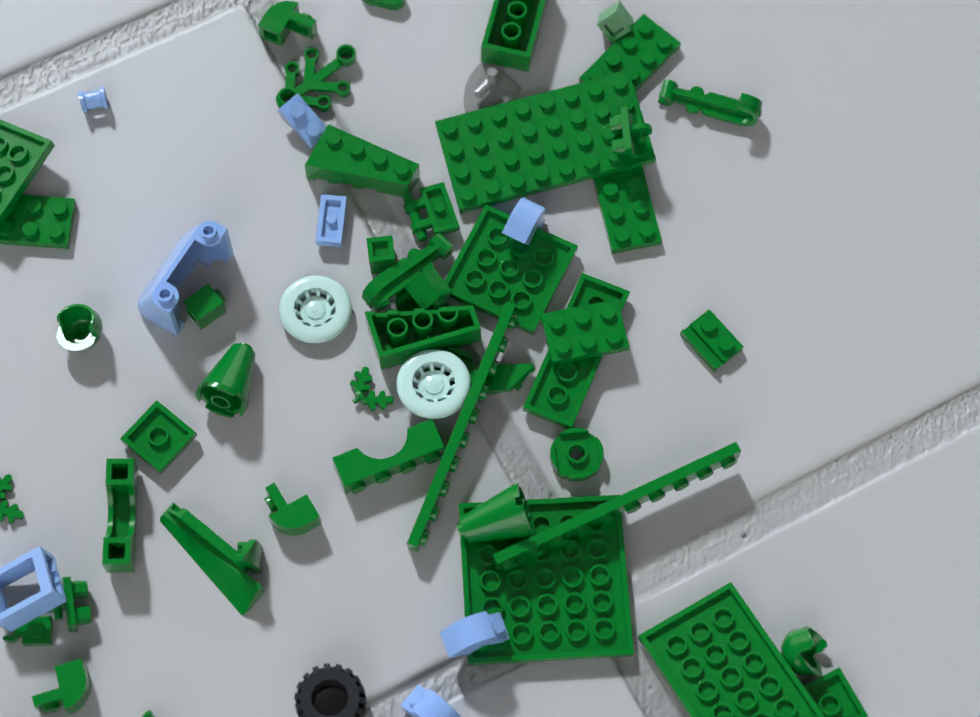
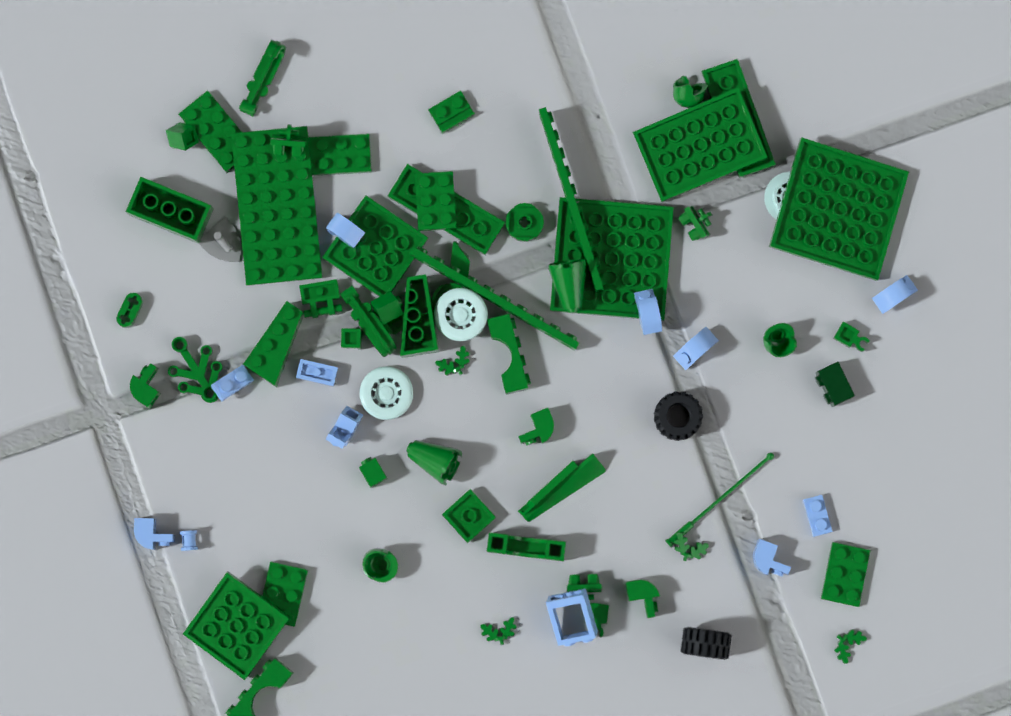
camera: 80 degrees left, 15 degrees up
(95, 50) = (146, 534): none -> light blue brick
(201, 245) = (359, 505): light blue windscreen -> none
(249, 555) = (568, 460): green slope -> none
(258, 262) = (344, 427): none -> light blue brick
(618, 693) = (700, 230): none -> green hips

